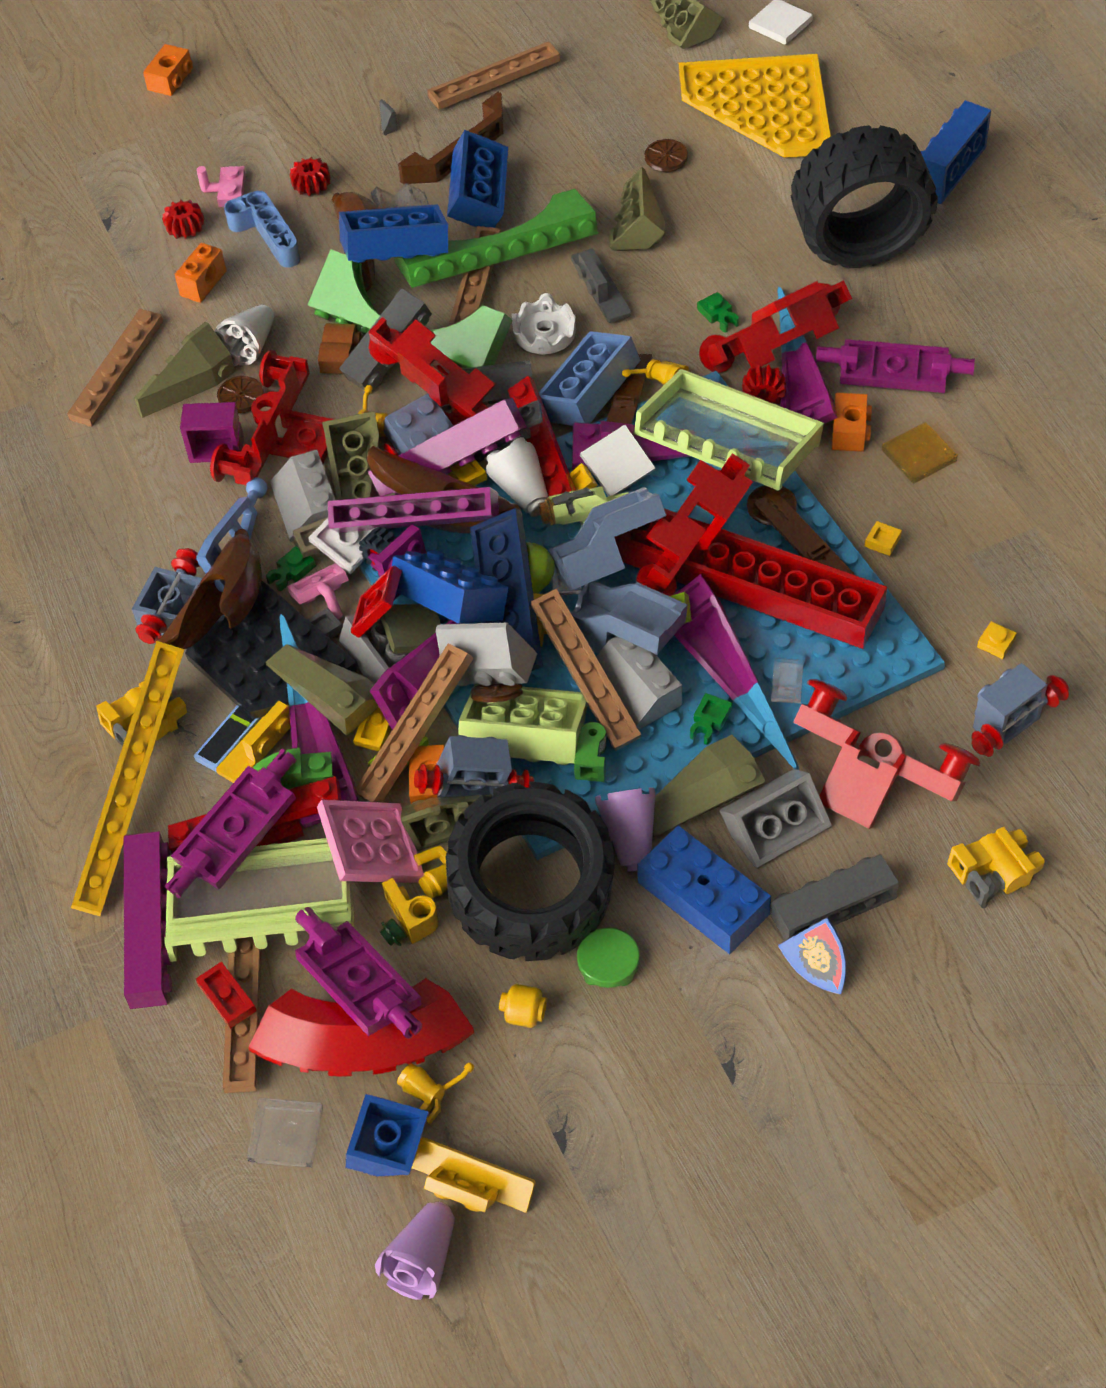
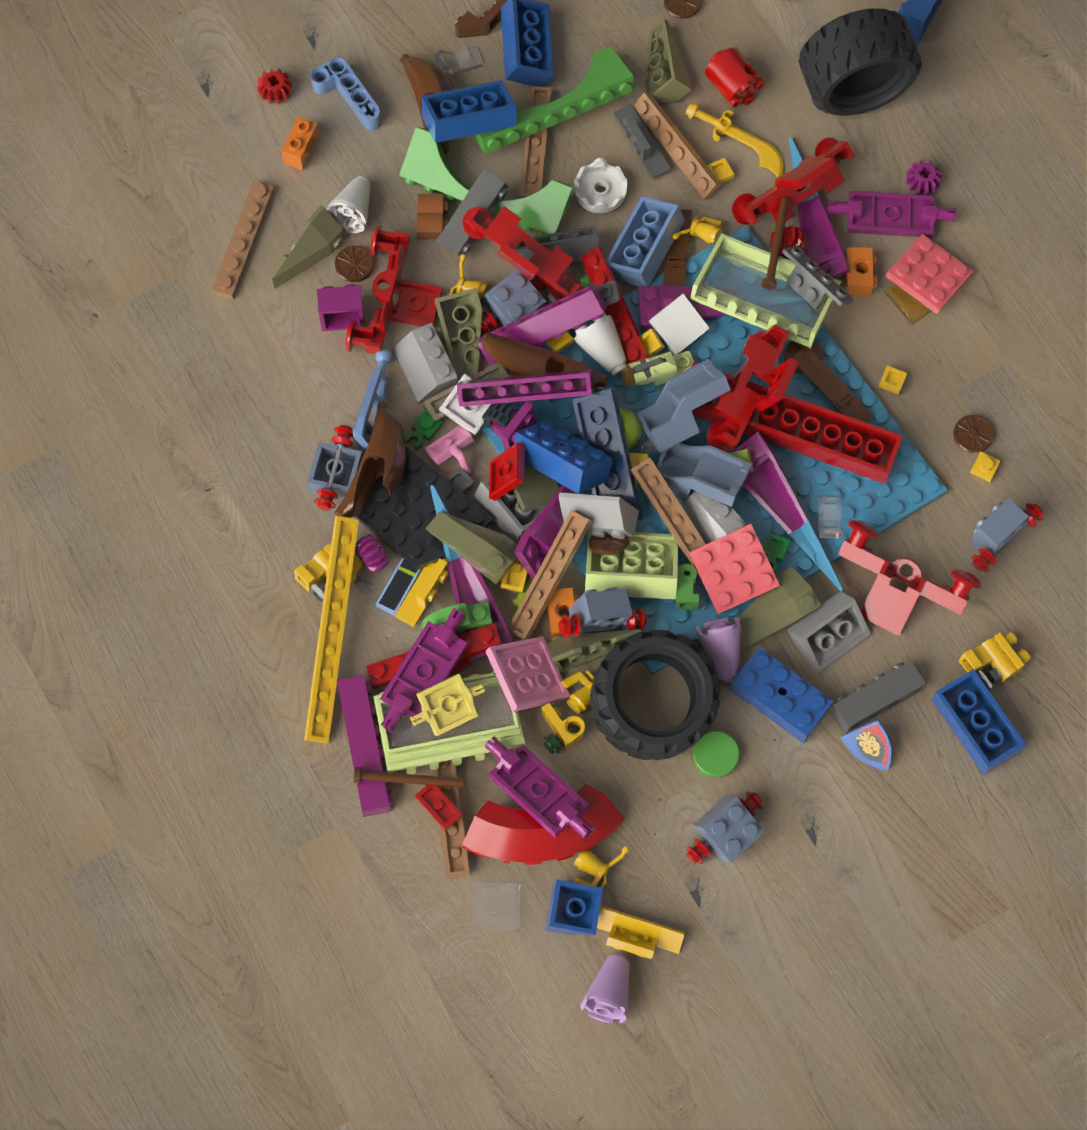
camera: 10 degrees left, 15 degrees up
(127, 948) = (407, 778): none -> reddish brown bar
(197, 695) = (371, 553): none -> magenta gear
(230, 183) = (307, 46): bright pink plate -> none
(254, 865) = (447, 704): none -> light yellow plate
(310, 176) = (378, 36): red gear -> none
(523, 1005) = (658, 798): yellow head -> none
(610, 1049) = (727, 828): none -> sand blue brick
(641, 289) = (676, 145): none -> medium nougat plate
(654, 729) = (734, 568): none -> coral plate
(689, 317) = (721, 170): none -> yellow plate
(699, 274) = (768, 154): none -> yellow sword
(716, 222) = (734, 77): none -> red cylinder
(718, 309) = (742, 162): green plate -> none
(733, 417) = (769, 281): none -> reddish brown bar
(787, 421) = (812, 281): none -> dark grey bracket
(937, 329) = (923, 177): none -> magenta gear
(937, 427) = (929, 273): none -> coral plate
(969, 936) = (969, 702): none -> blue brick
(983, 602) = (973, 433): none -> reddish brown wheel

